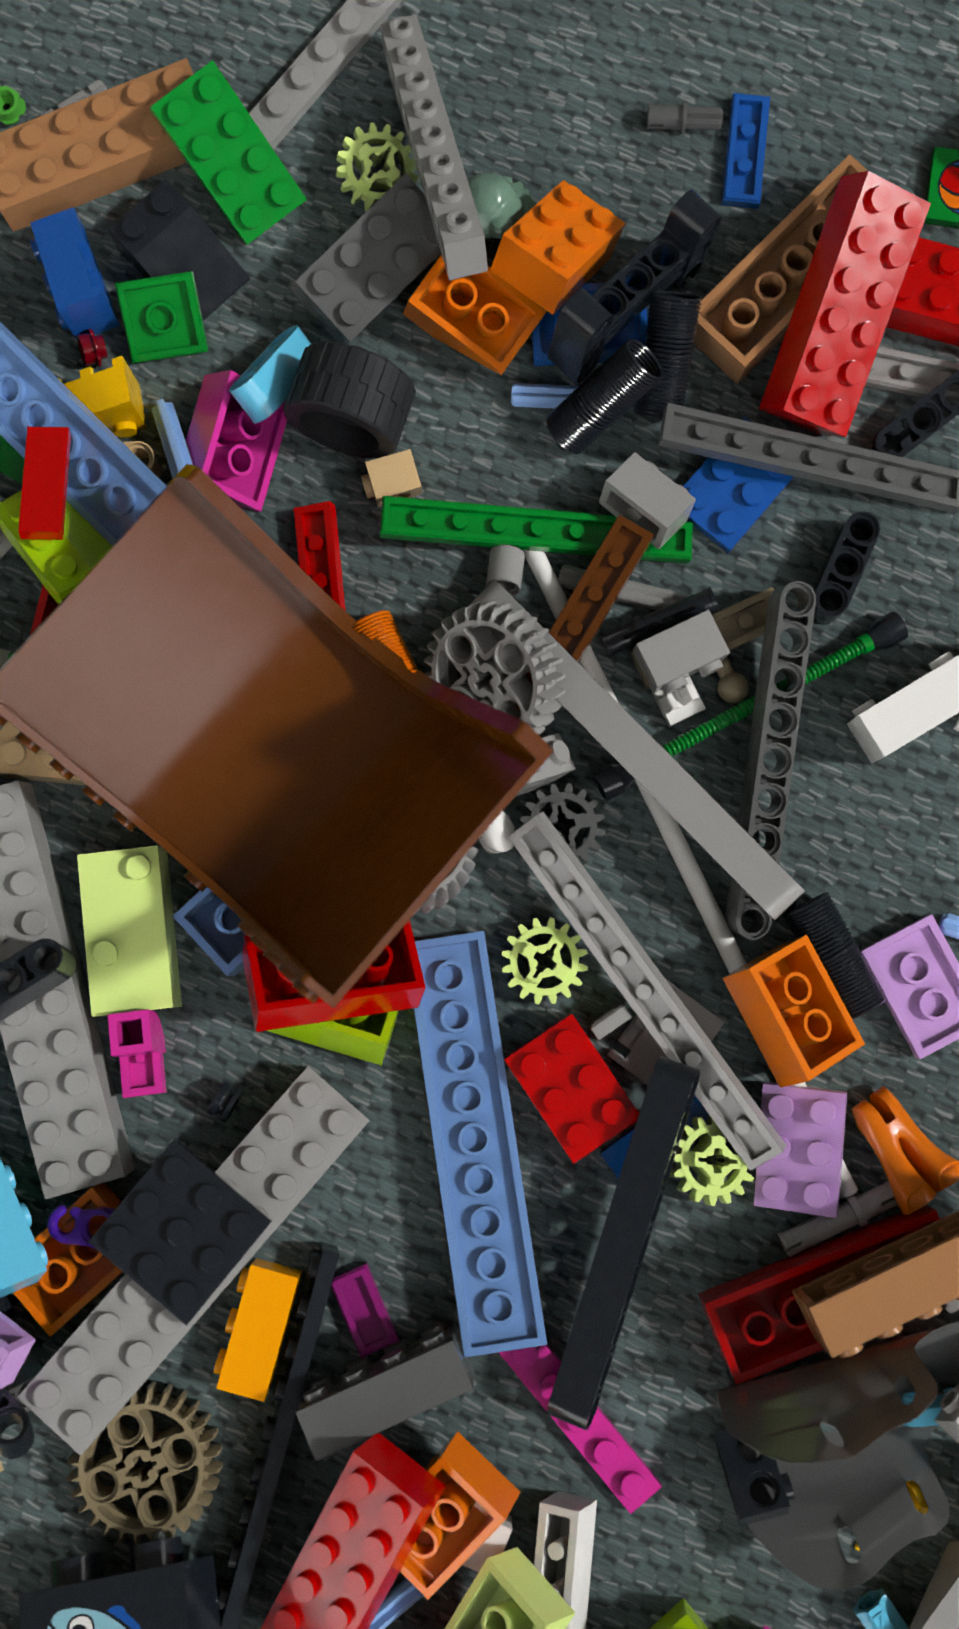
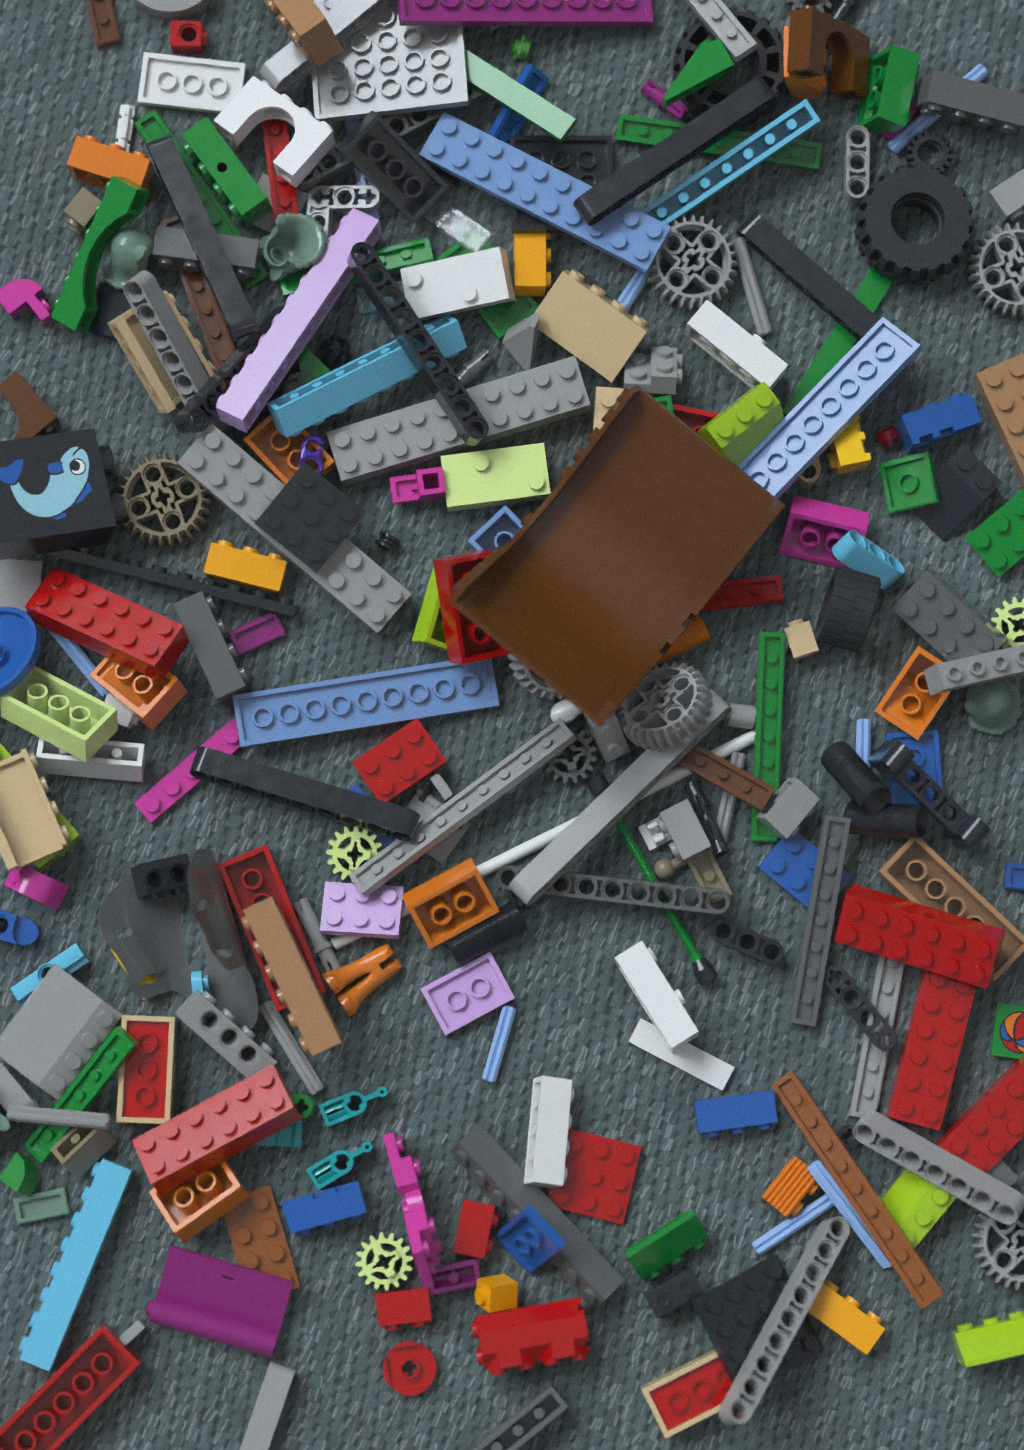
camera: 85 degrees right, 0 degrees up
(45, 483) = (780, 415): red tile -> none
(171, 436) = (816, 495): light blue axle -> none
(557, 246) = (961, 746): orange brick -> none
(560, 971) = (466, 735): yellowish green gear -> none

